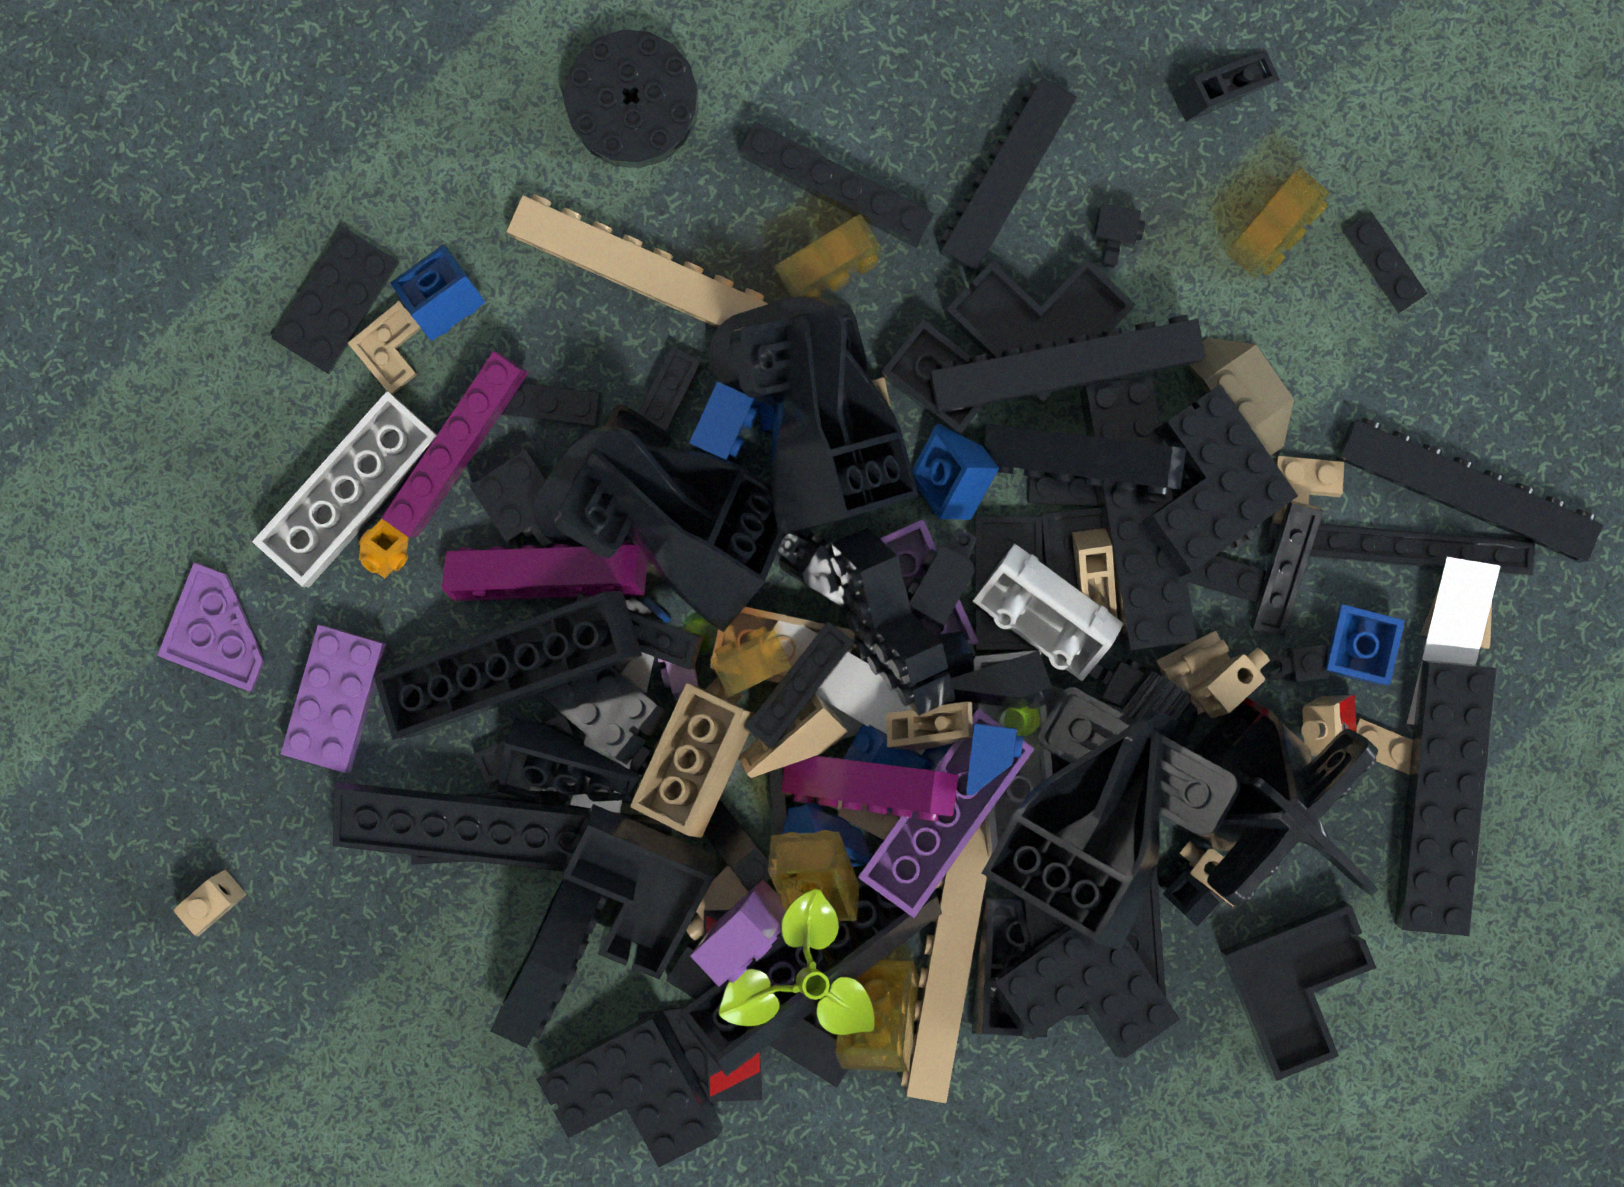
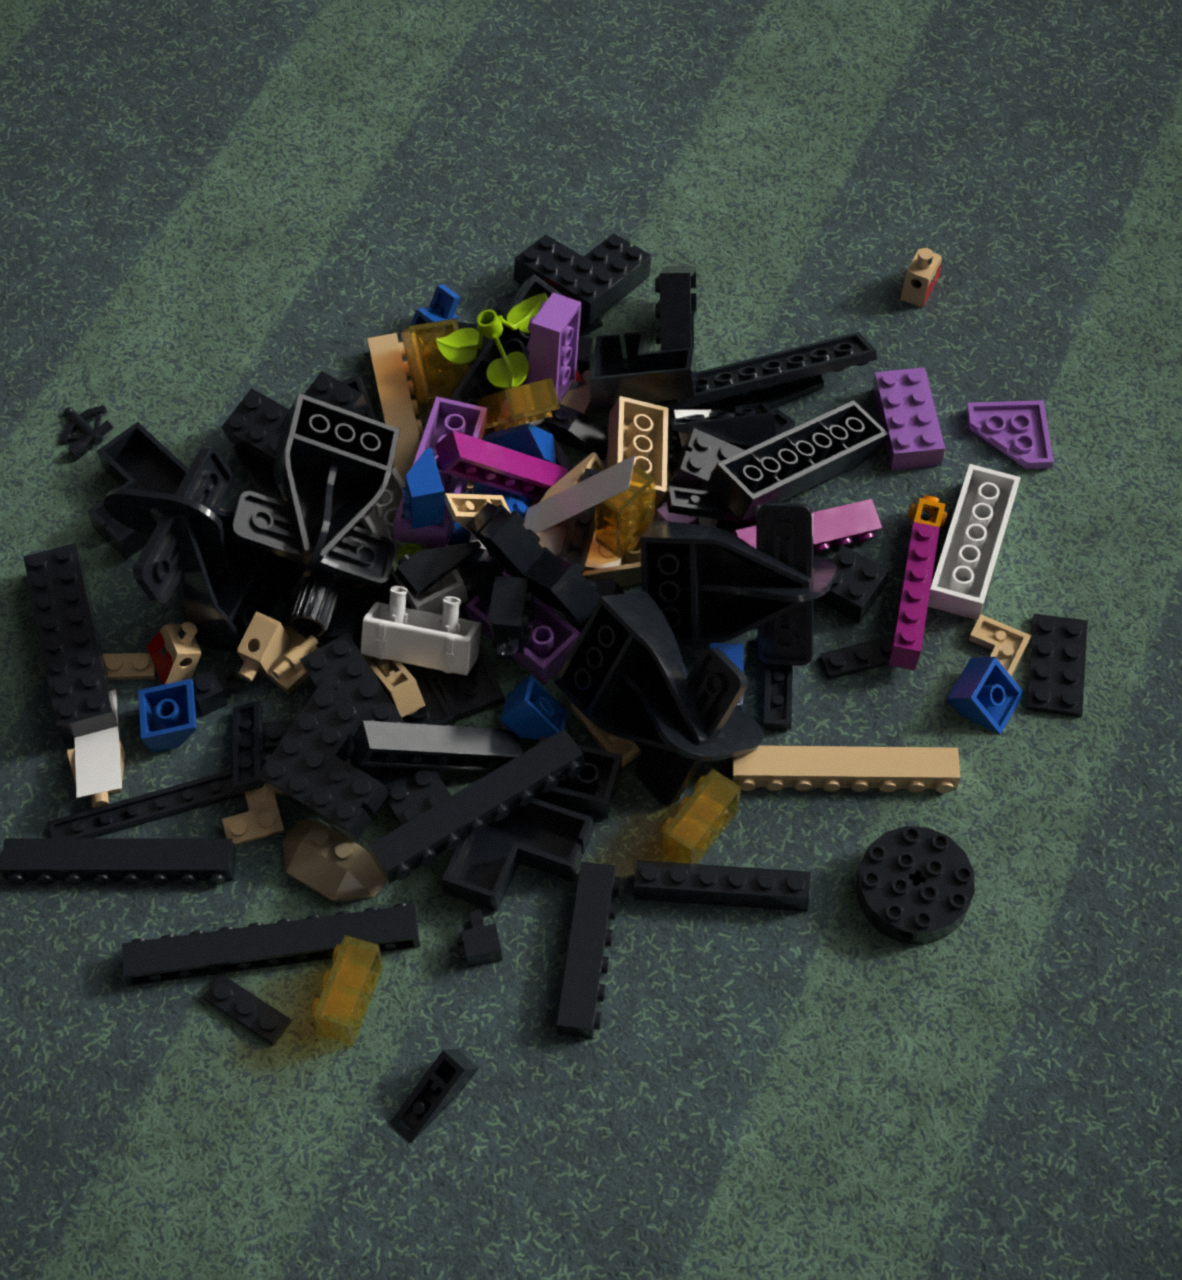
camera: 160 degrees right, 30 degrees down
(807, 684) = (580, 496): none -> white sticker
(846, 1106) = (441, 307): none -> blue brick
(1330, 1104) = (91, 436): none -> black piece
(1337, 320) = (265, 944): none -> black brick

